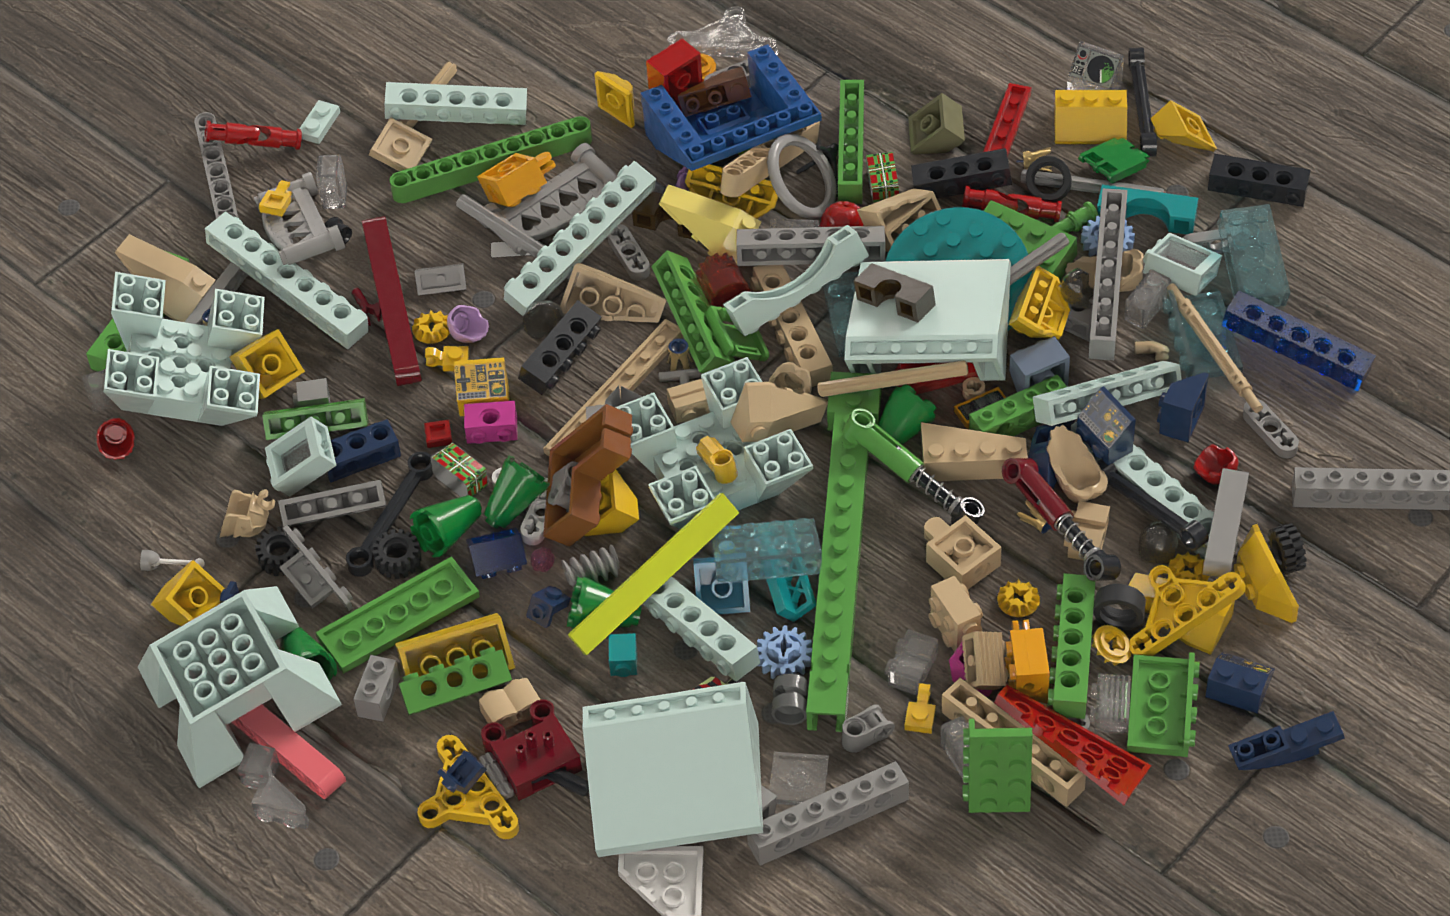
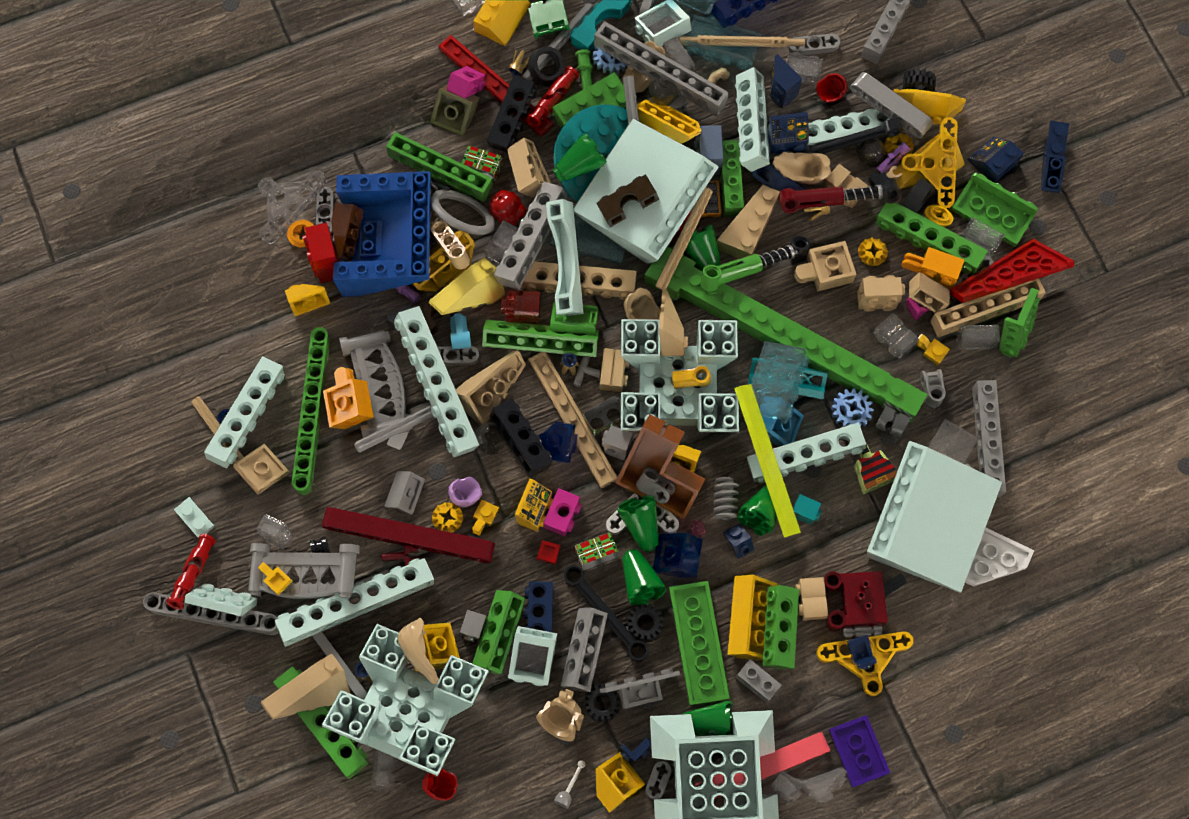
camera: 70 degrees left, 20 degrees up
(232, 170) = (221, 599): none -> light aqua plate
(250, 322) = (413, 645): none -> tan hair
(339, 827) = (859, 751): none -> dark purple plate
(577, 386) = (560, 441): none -> clear blue plate
(653, 243) = (460, 335): none -> medium azure piece
(925, 234) = (579, 159): none -> green cone
(972, 116) = (466, 82): none -> dark pink brick
(1128, 570) = (875, 179): none -> black piece
(1147, 563) = (903, 149): none -> medium lavender pin
(1224, 425) = (806, 67): none -> clear brick

